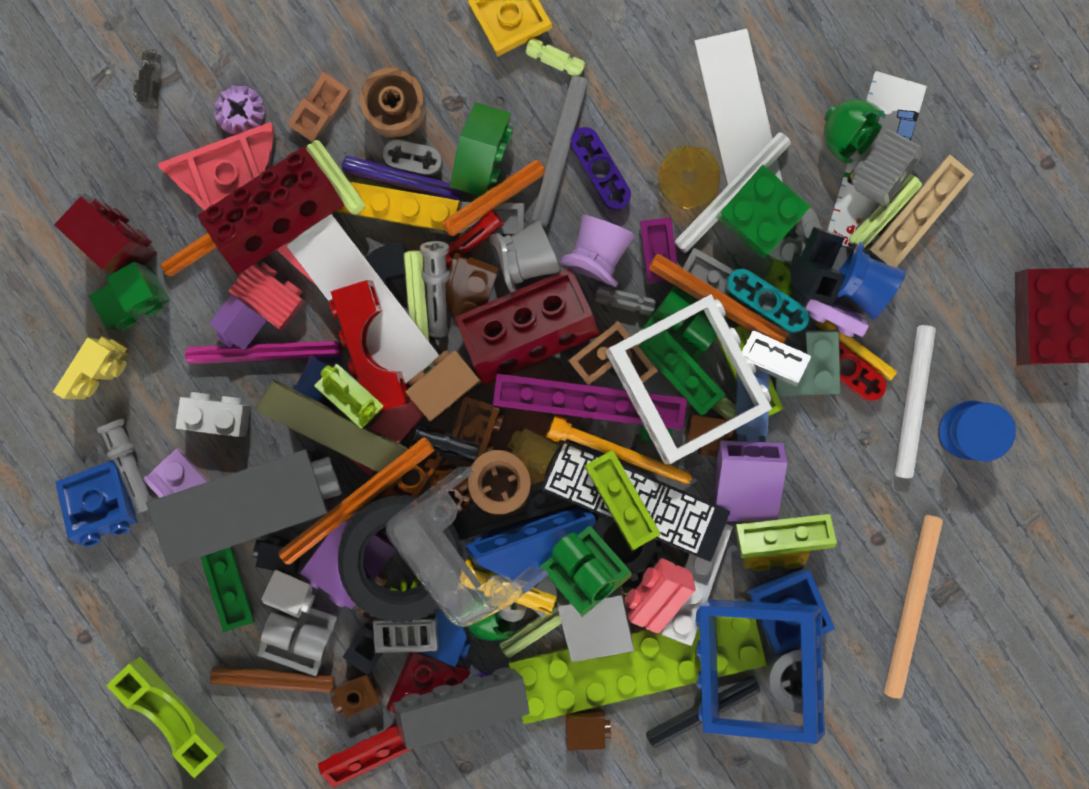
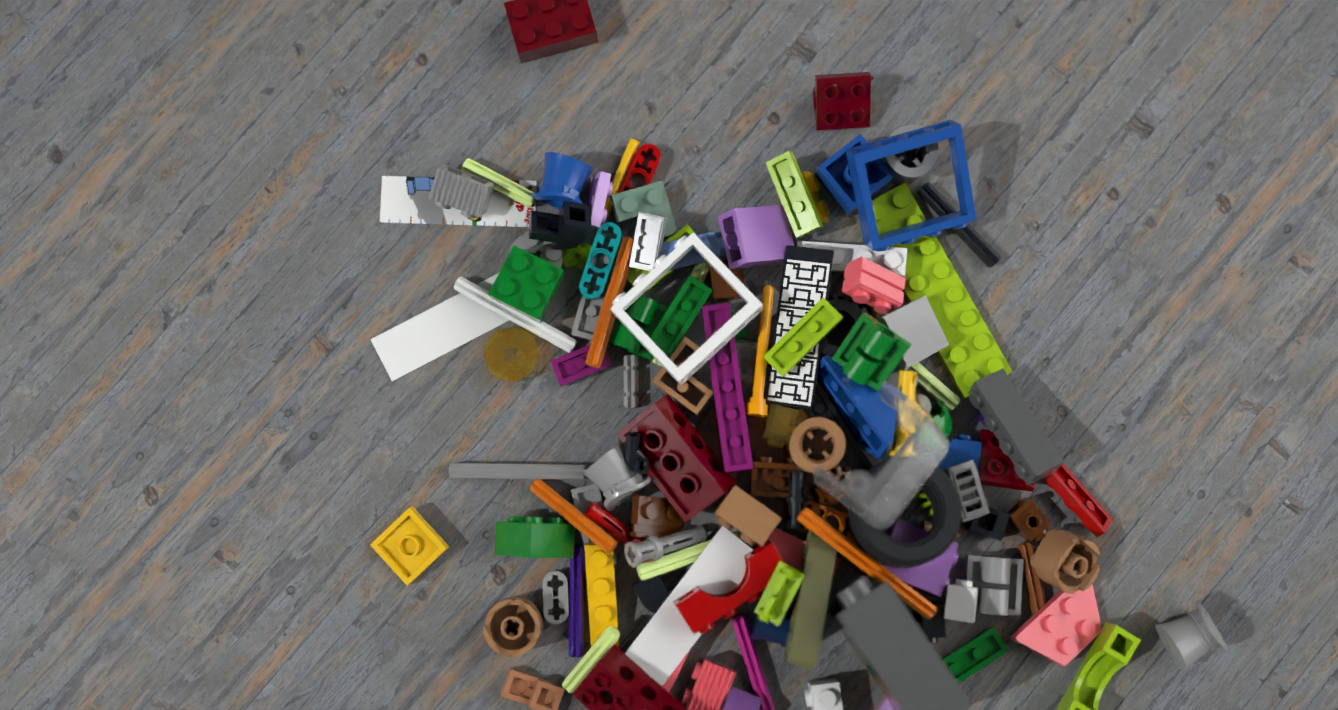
camera: 115 degrees left, 5 degrees down
(236, 700) = (1062, 626): none -> coral wing
(300, 722) = (1066, 561): none -> medium nougat brick
(541, 280) = (633, 454): none -> black arm
(554, 57) = (437, 496): yellowish green axle -> none
(581, 153) = (512, 430): dark purple beam -> none
(587, 730) = (1002, 317): reddish brown brick -> none
(598, 249) = (595, 415): lavender hat -> none
(851, 128) = (435, 229): green cylinder -> none
(878, 620) = (842, 101): none -> dark red plate
(913, 606) = (807, 75): light nougat axle -> none
(915, 401) = (651, 117): white axle -> none
(920, 212) = (491, 153): tan plate -> none
(977, 431) = (663, 60): blue hat -> none

